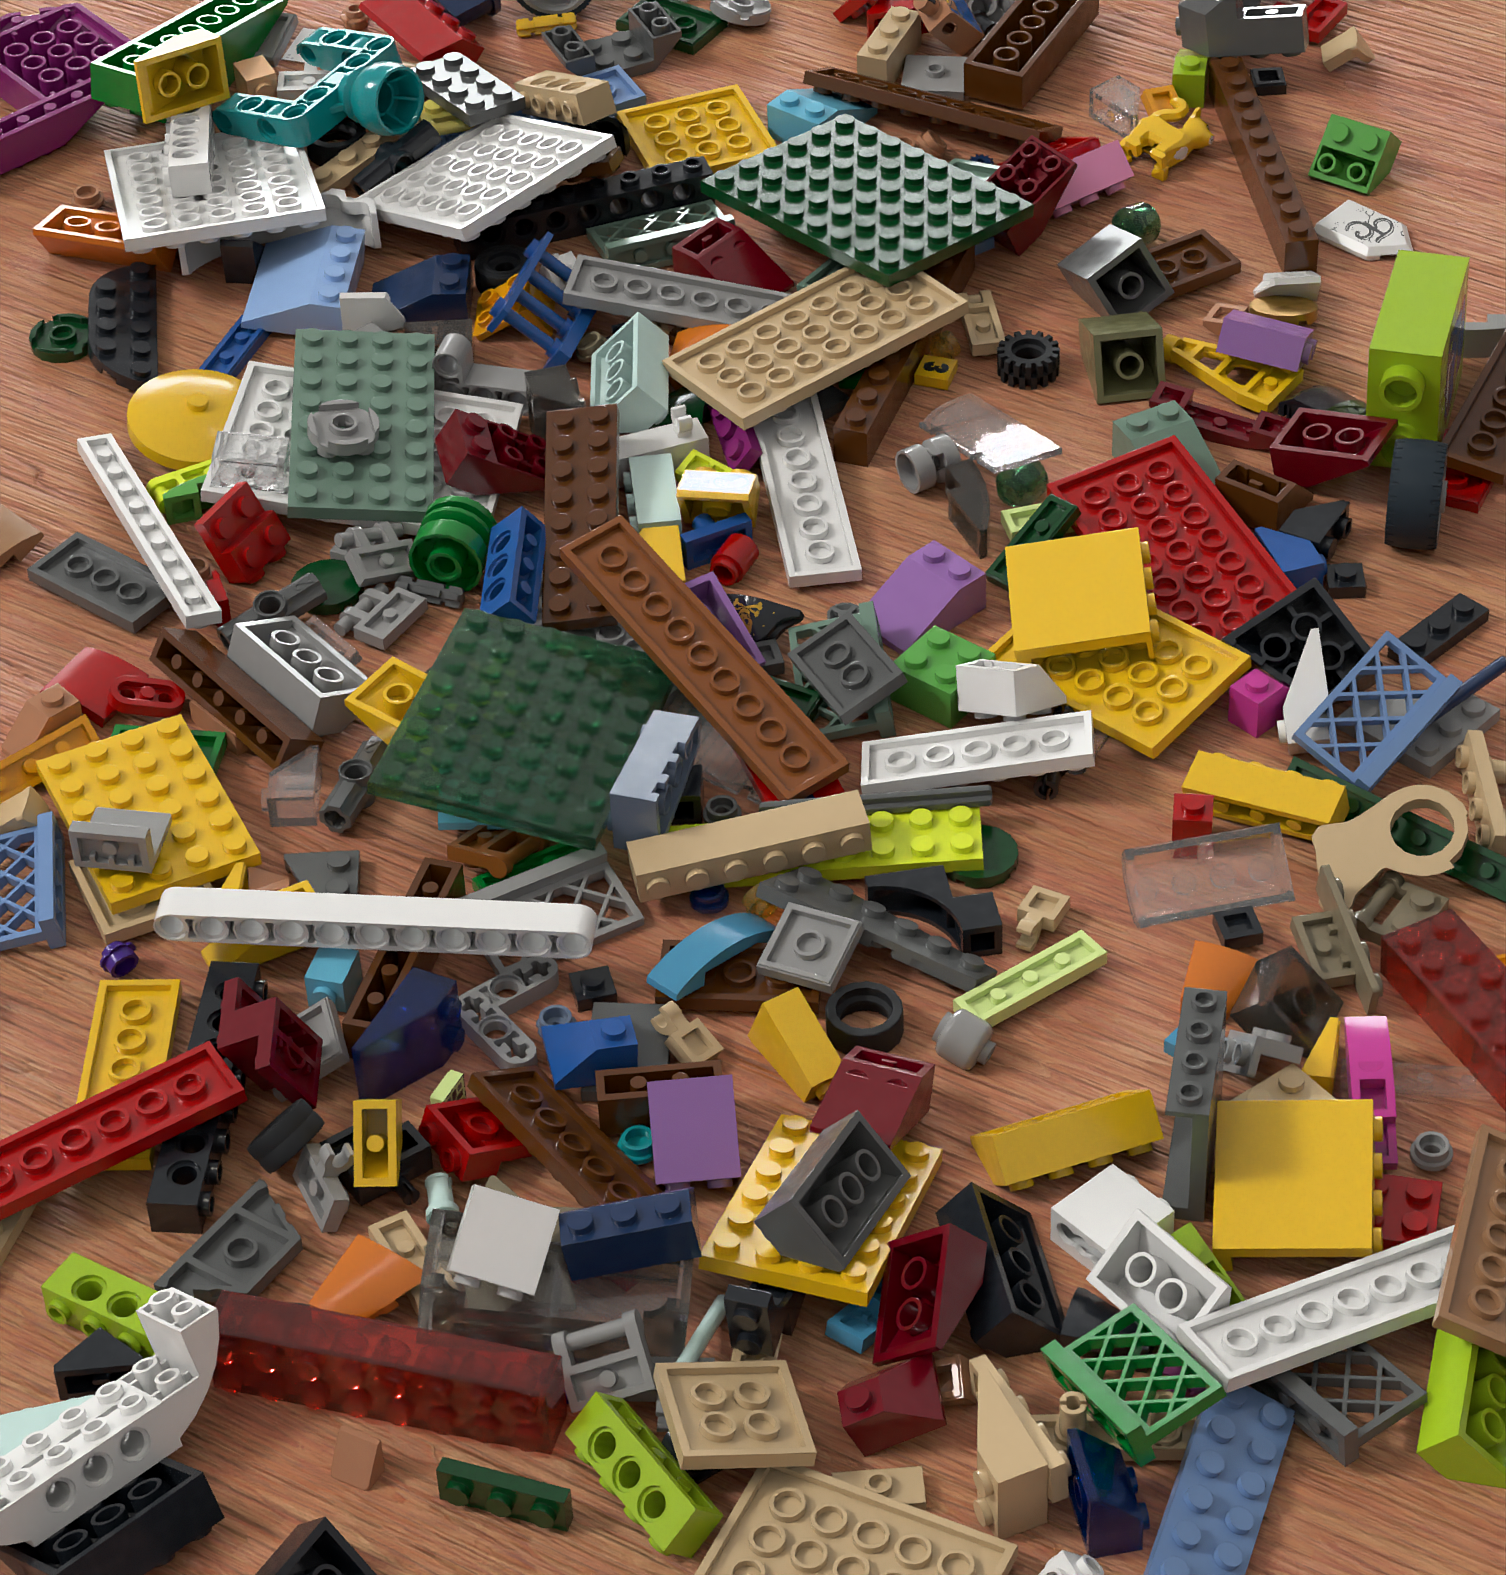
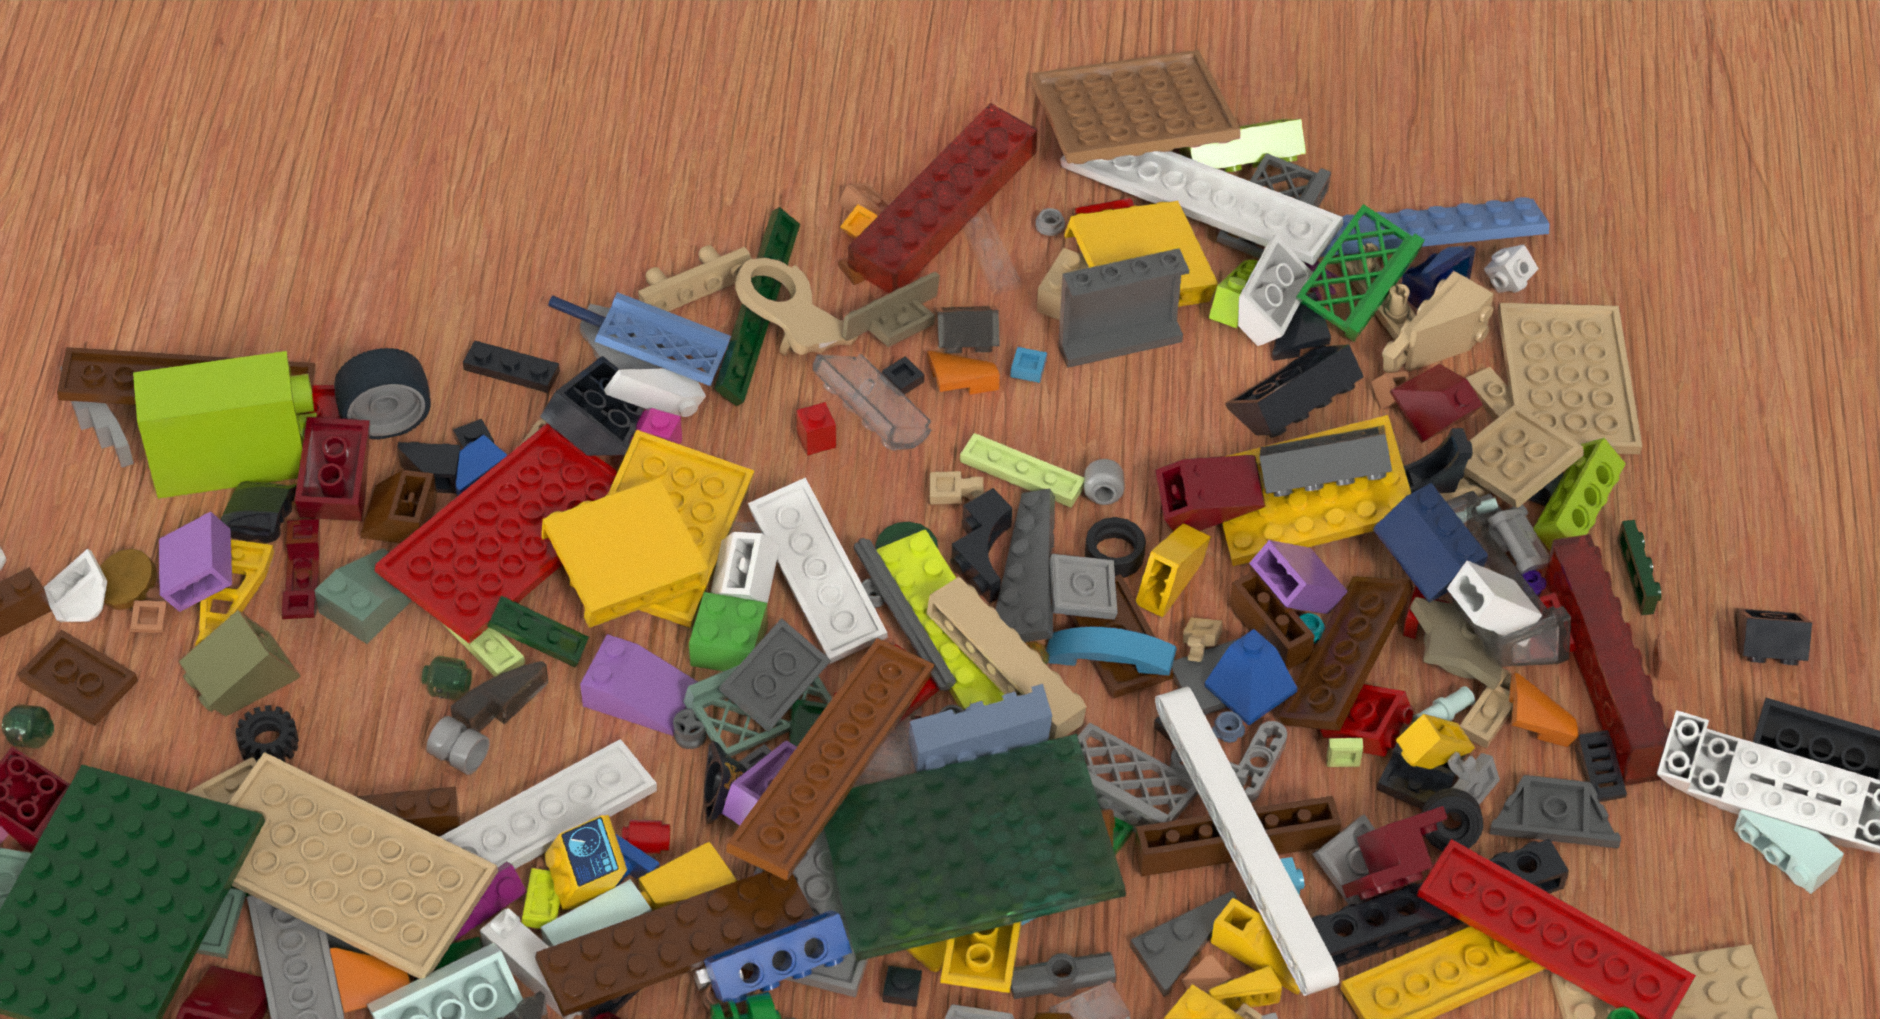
camera: 120 degrees left, 10 degrees up
(93, 1364) = (1706, 838): black slope -> none
(96, 1297) = (1651, 889): lime brick -> none
(409, 1035) = (1310, 776): clear blue slope -> none
(926, 1291) = (1356, 396): dark red slope -> none
(988, 434) = (402, 716): clear piece -> none
(1068, 1138) = (1155, 399): yellow slope -> none
(1098, 1210) = (1218, 348): white piece -> none
(1116, 274) = (129, 703): dark grey slope -> none
(1244, 1050) = (1031, 315): light grey bracket -> none
(1266, 795) = (769, 392): yellow brick -> none
(1323, 1058) = (1009, 291): yellow slope -> none
(1372, 1076) = (1021, 250): dark pink slope -> none
(1414, 906) = (838, 295): dark tan plate -> none

